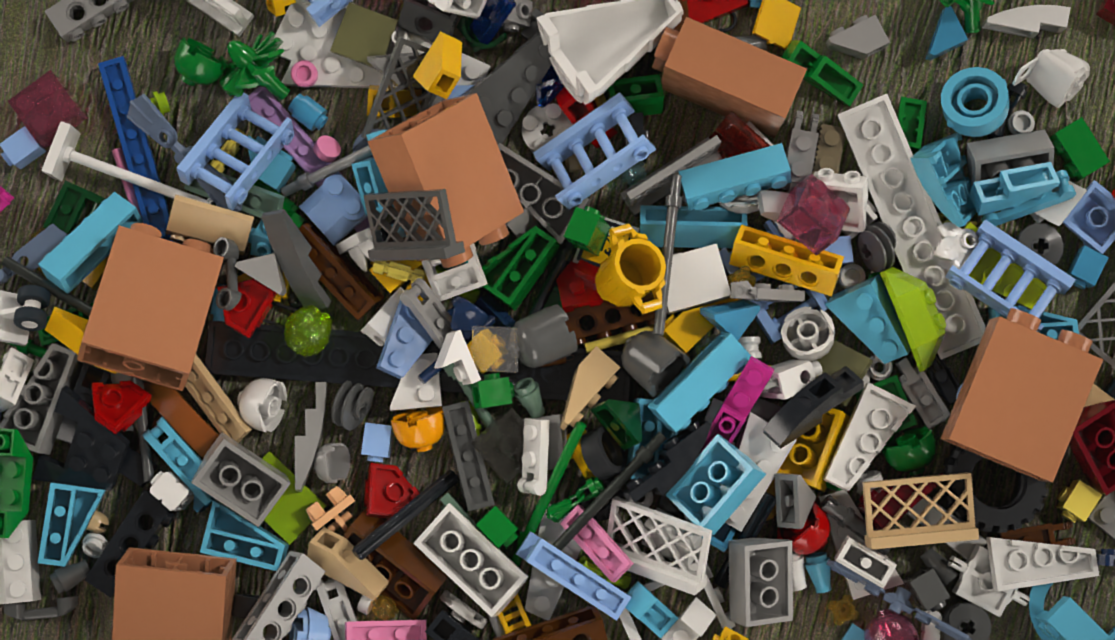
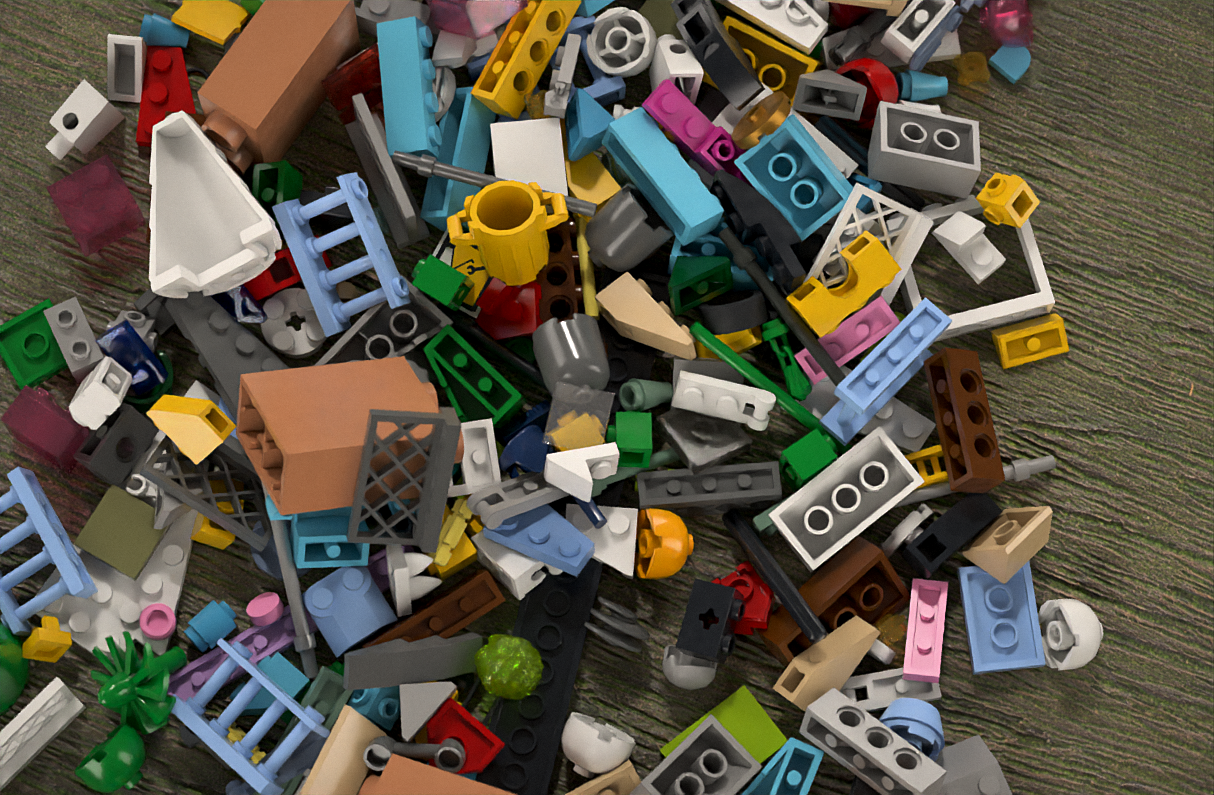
camera: 90 degrees left, 10 degrees down
(308, 445) = (663, 693): light grey slope -> none
(340, 502) = (758, 672): light nougat hips -> none
(352, 464) = (705, 604): none -> black brick
(377, 441) = (666, 602): light blue brick -> none
(615, 522) = (868, 270): none -> yellow arch
(650, 610) = (943, 285): medium azure plate -> none
(753, 450) = (761, 119): none -> pearl gold plate

